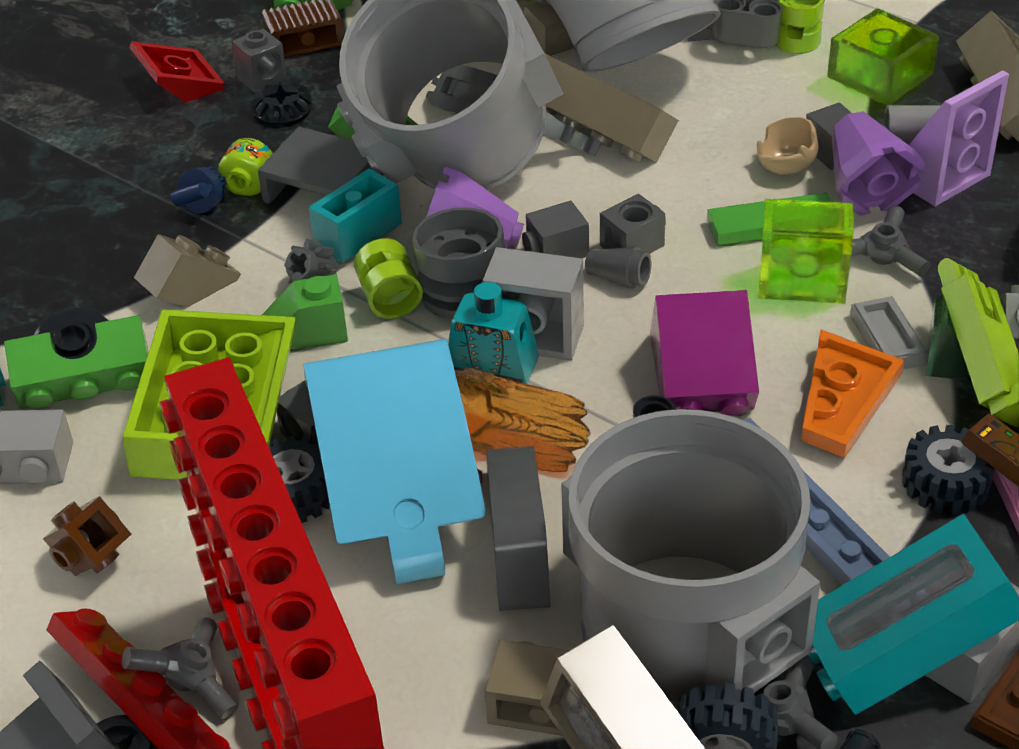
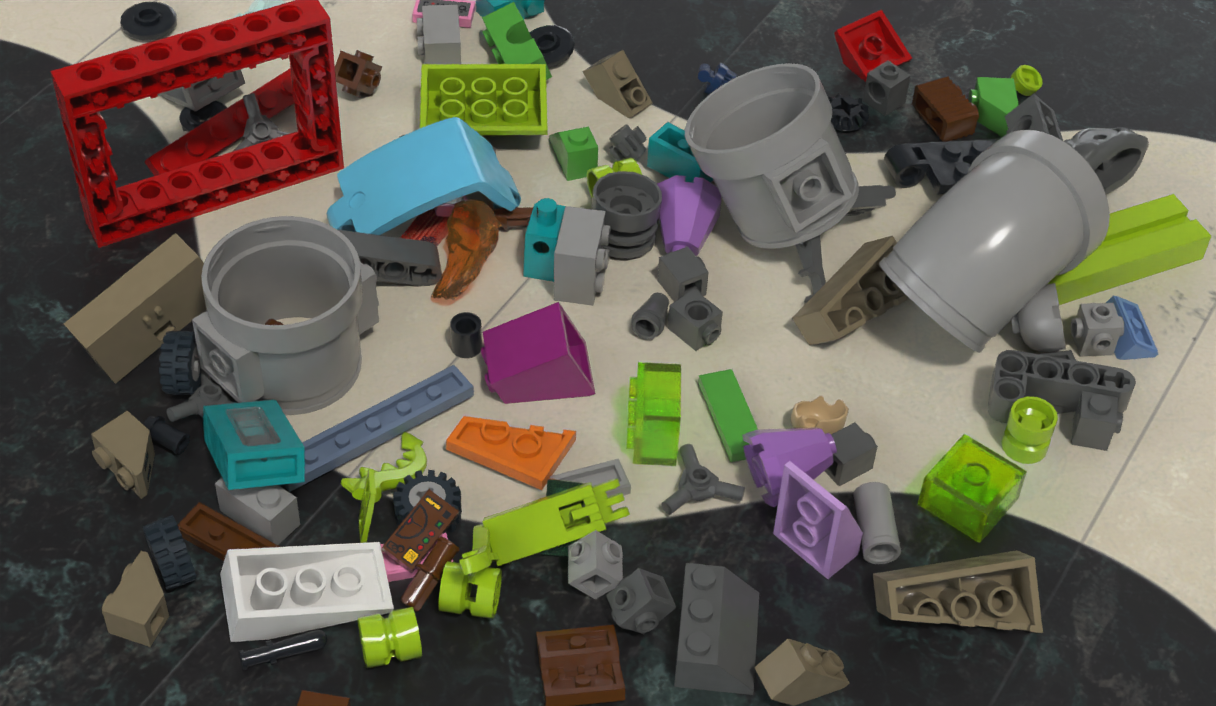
camera: 80 degrees right, 5 degrees up
(932, 508) = (373, 482): none -> lime piece

